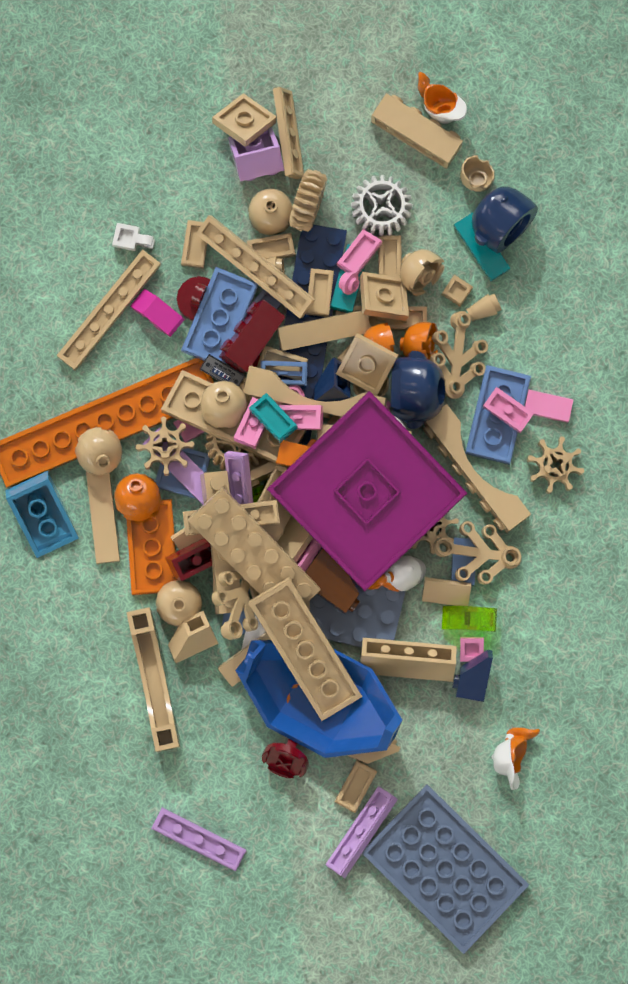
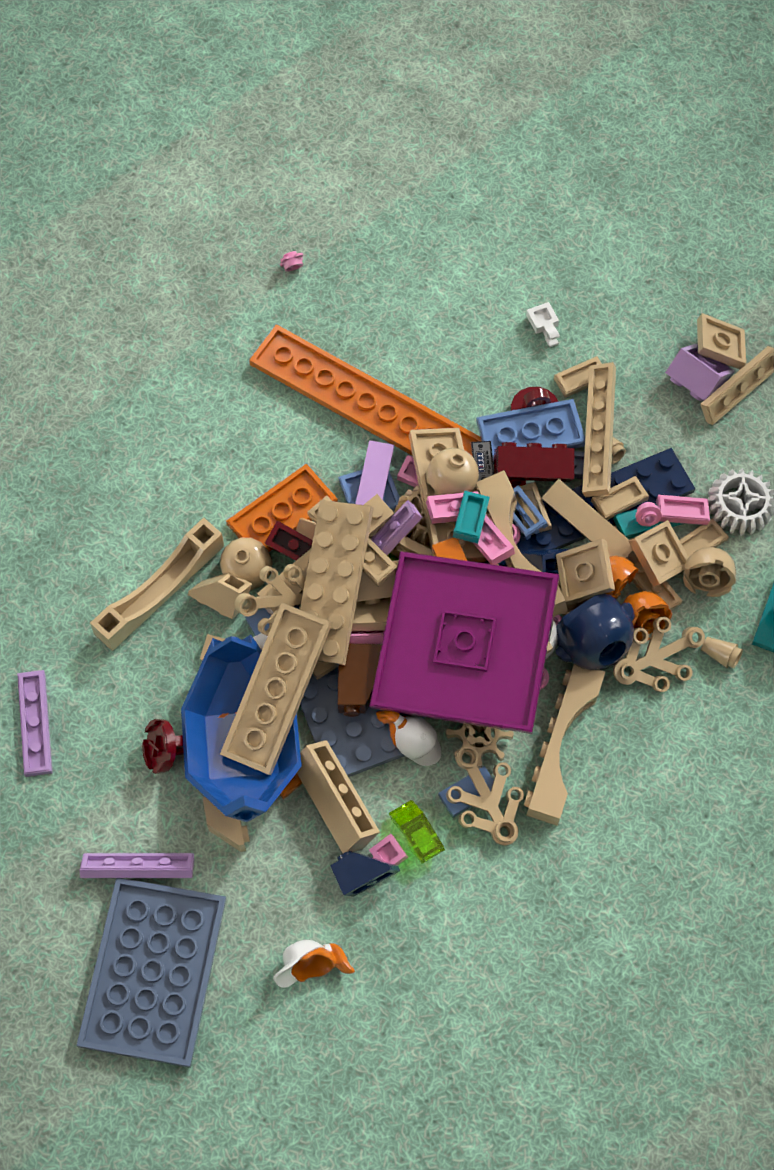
camera: 60 degrees right, 15 degrees down
(41, 514) = (245, 402): dark azure slope -> none
(98, 451) = (335, 409): tan cylinder -> none
(103, 518) = (280, 454): tan tile -> none
(108, 310) = (468, 344): tan plate -> none
(137, 497) = (318, 466): orange cylinder -> none
(157, 312) = (495, 382): dark pink slope -> none
(174, 446) = (384, 451): tan gear -> none
(272, 220) = (659, 416): tan cylinder -> none
(274, 246) = (634, 442): tan tile -> none
(308, 200) = (694, 433): tan gear -> none
(355, 786) = (179, 833): tan tile -> none
(446, 592) = (427, 792): tan tile -> none
(457, 290) = (718, 619): tan tile -> none
(489, 435) = (632, 731): medium blue tile -> none
(508, 410) = (643, 733): bright pink plate -> none
(549, 405) = (677, 772): bright pink tile -> none
(563, 458) = (636, 817): tan gear -> none

